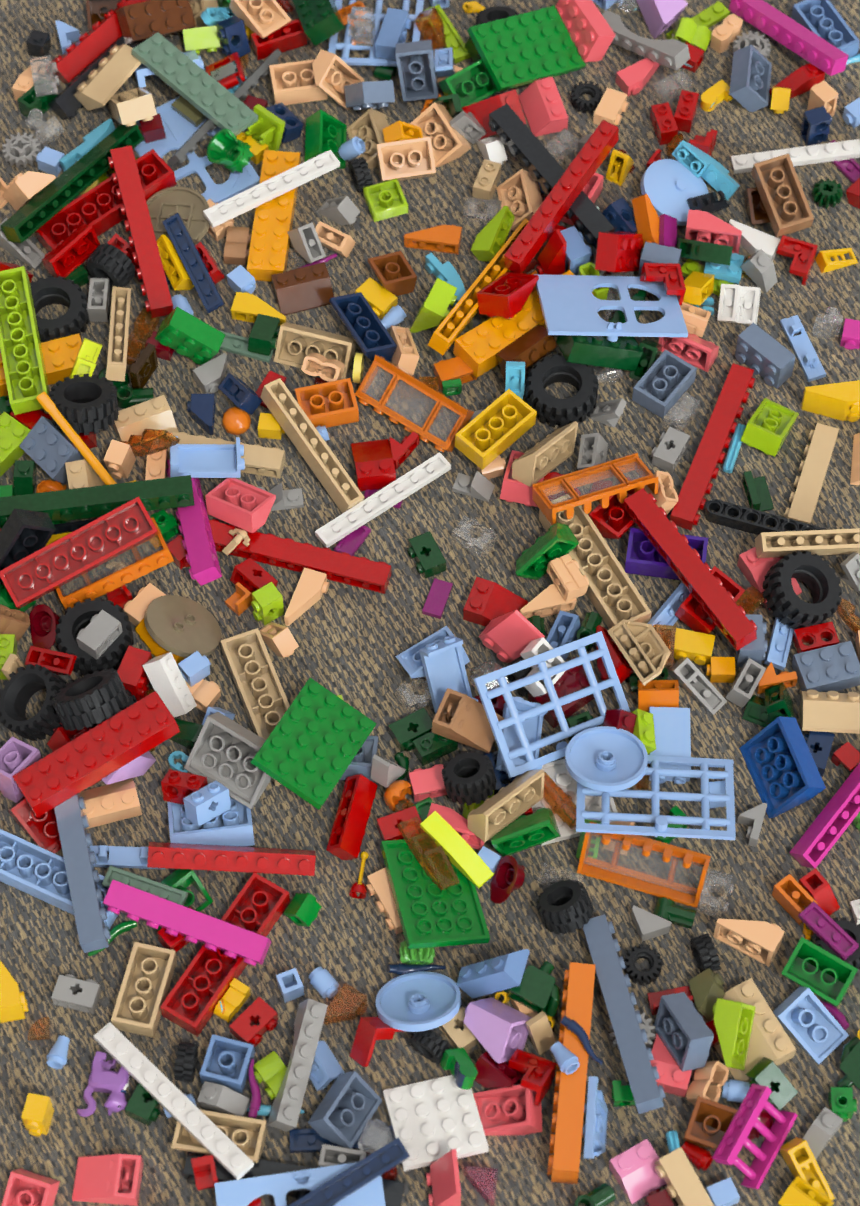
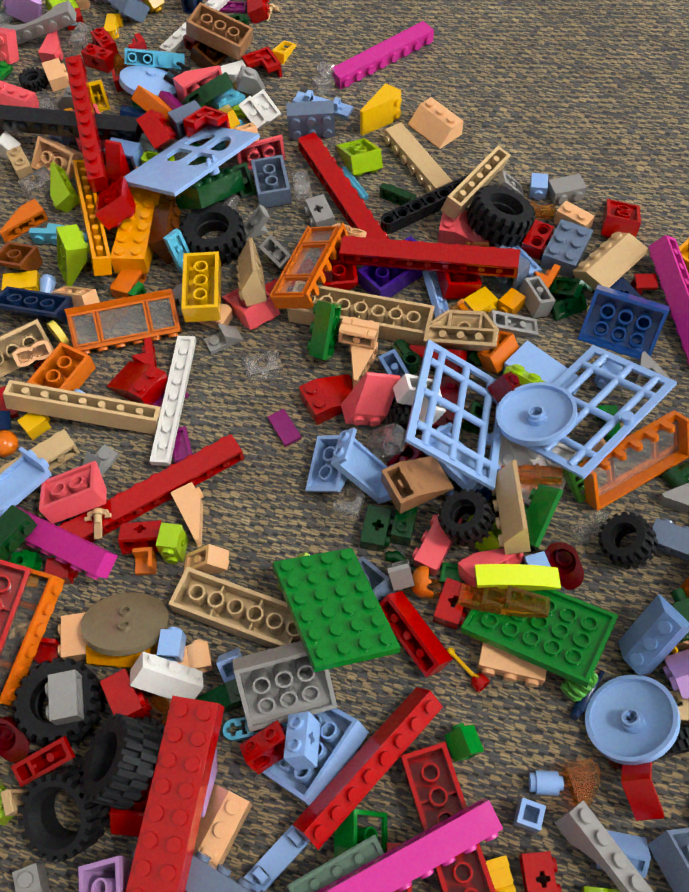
camera: 45 degrees left, 0 degrees up
(427, 555) = (245, 406): dark green brick -> none

